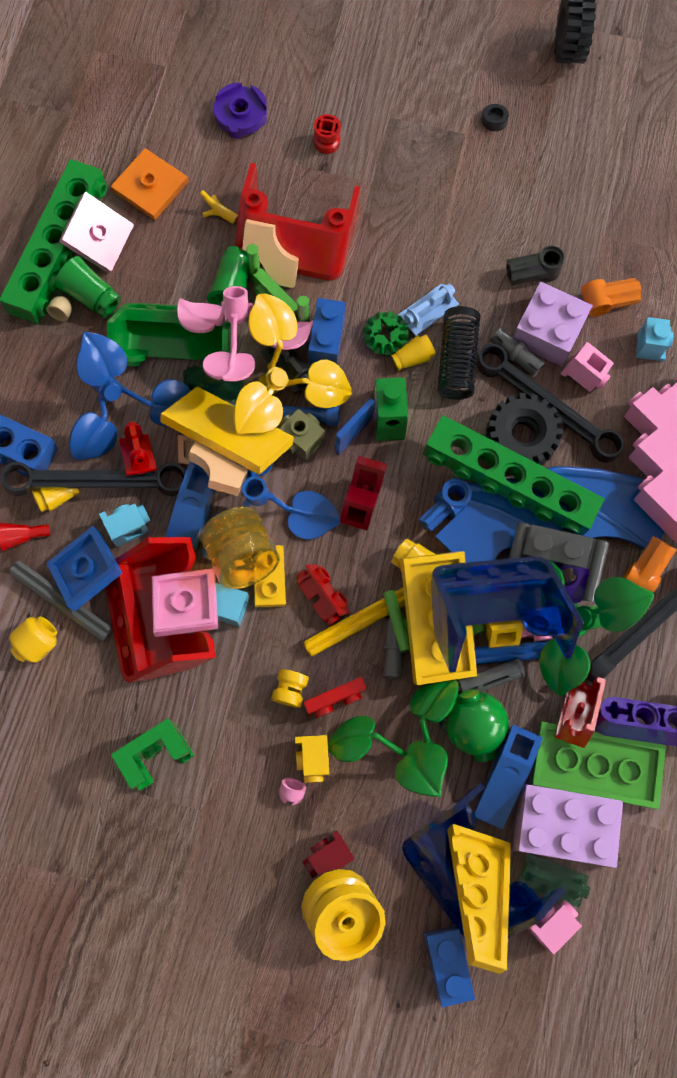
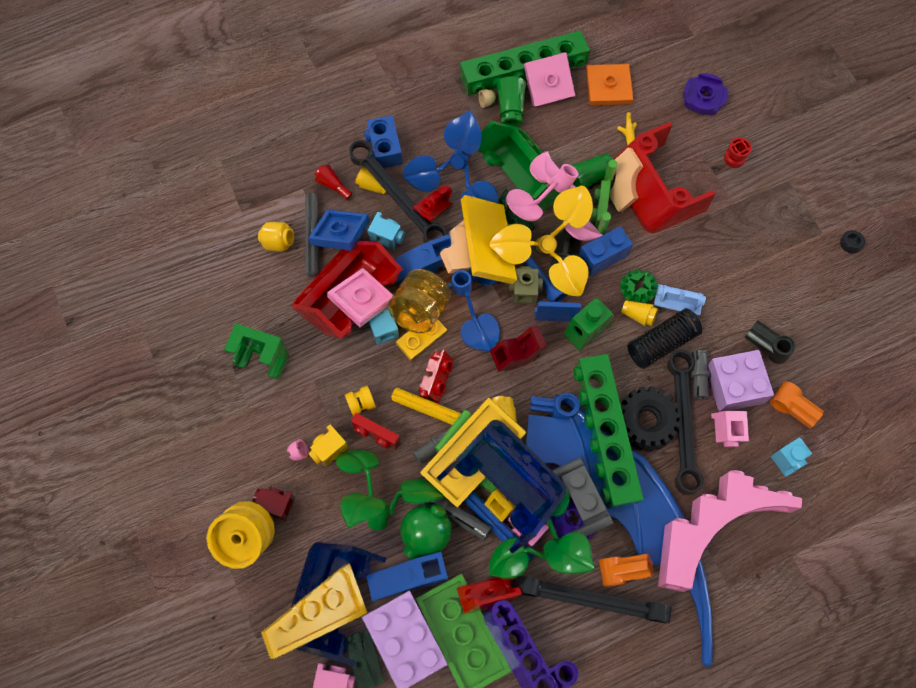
camera: 55 degrees right, 5 degrees down
(449, 966) = (248, 637): blue brick -> none

